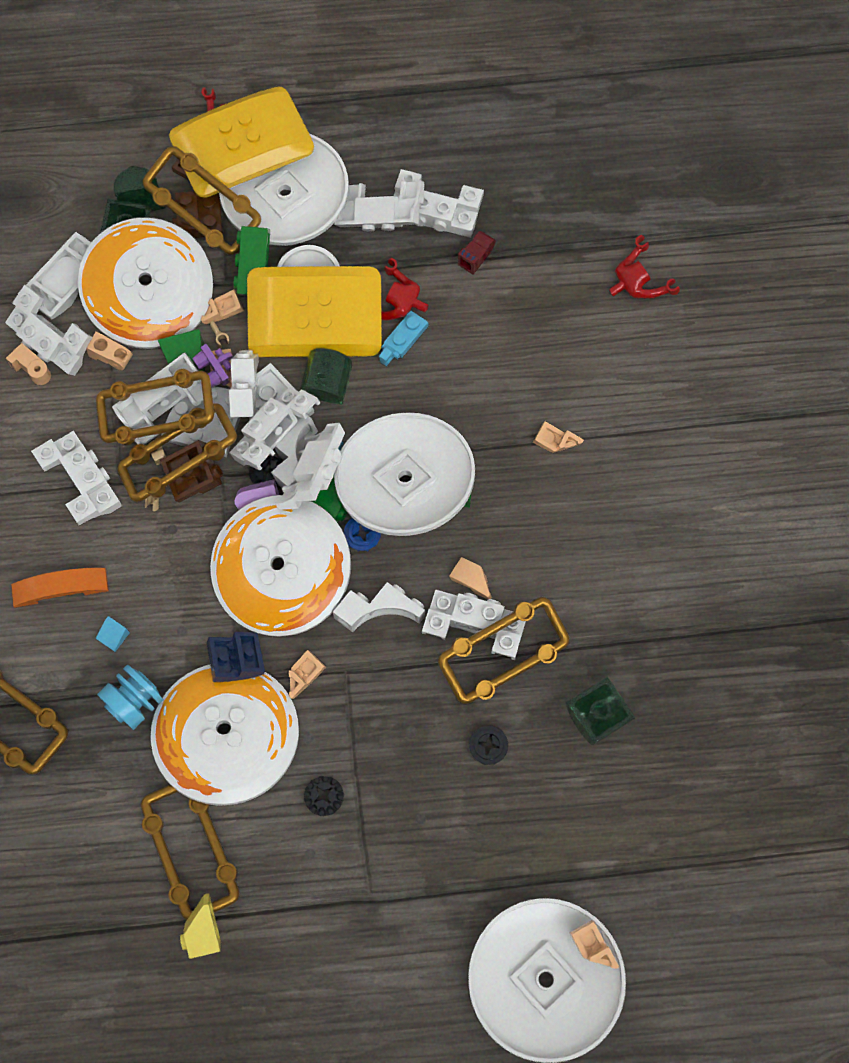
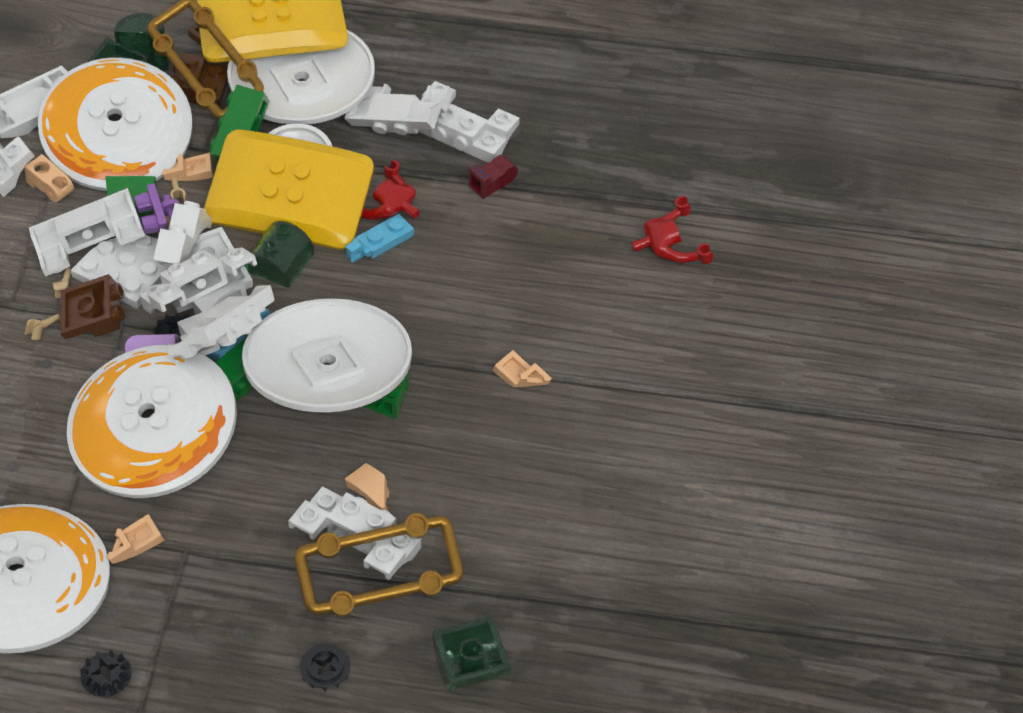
camera: 10 degrees right, 20 degrees down
(140, 454) = (42, 280): pearl gold bar -> none
(186, 423) = (101, 252): pearl gold bar -> none
(235, 657) = (61, 501): dark blue slope -> none
(356, 542) = (249, 410): blue gear -> none
(390, 600) = (263, 486): white arch -> none

